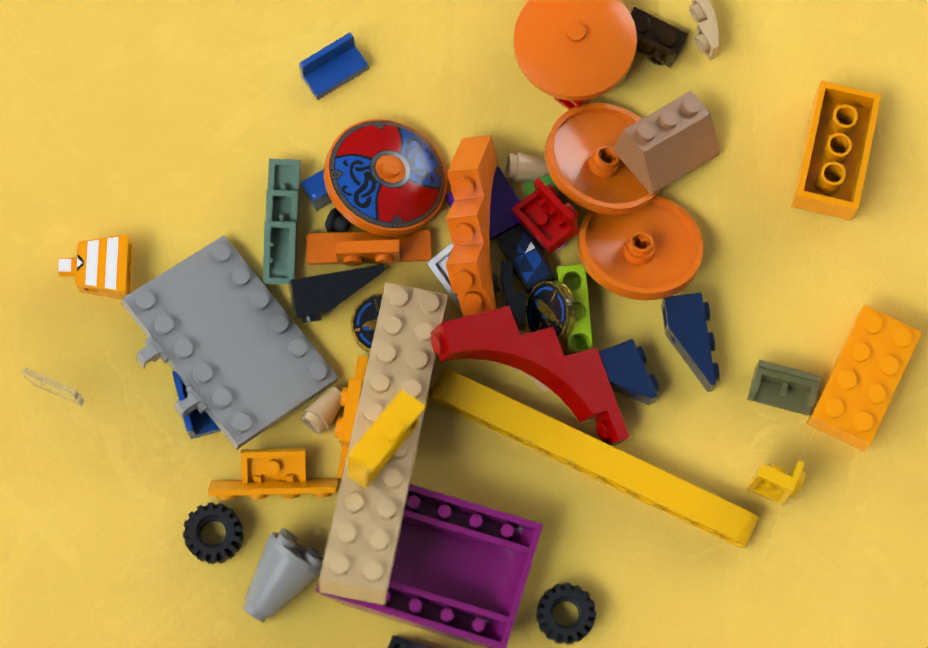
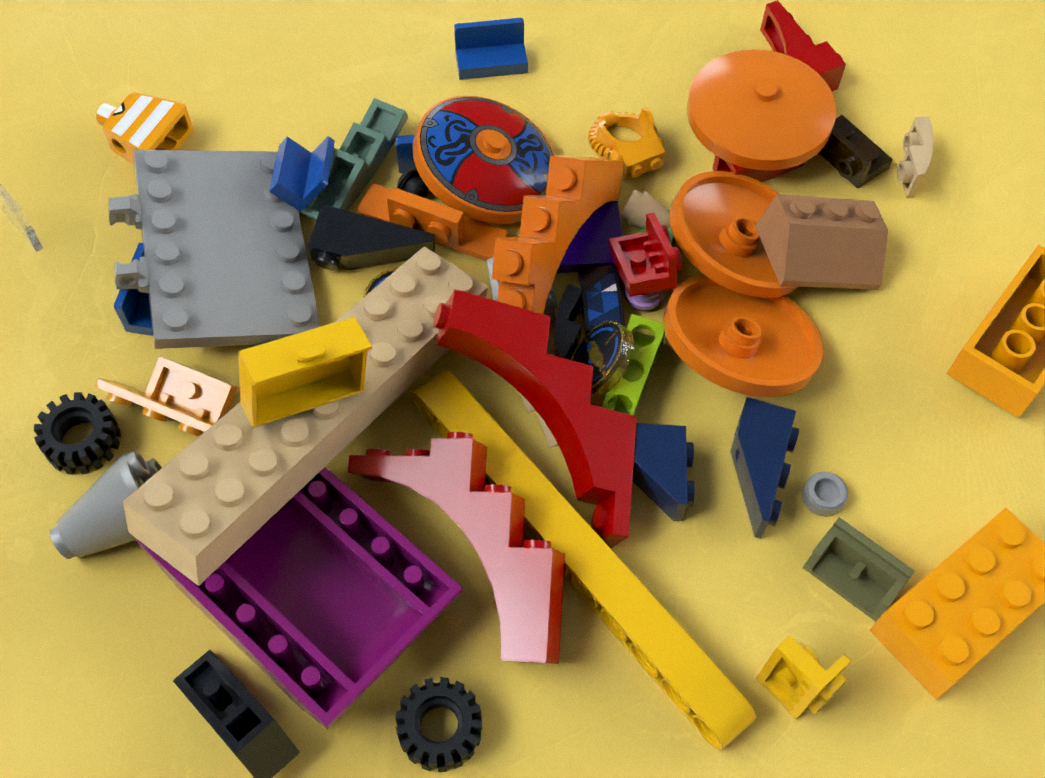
camera: 25 degrees right, 15 degrees down
(252, 251) = (301, 173): none -> blue panel
(492, 123) = (637, 155): none -> light orange piece
(536, 468) = (523, 580): none -> arch
(741, 339) = (824, 494): none -> light grey tile

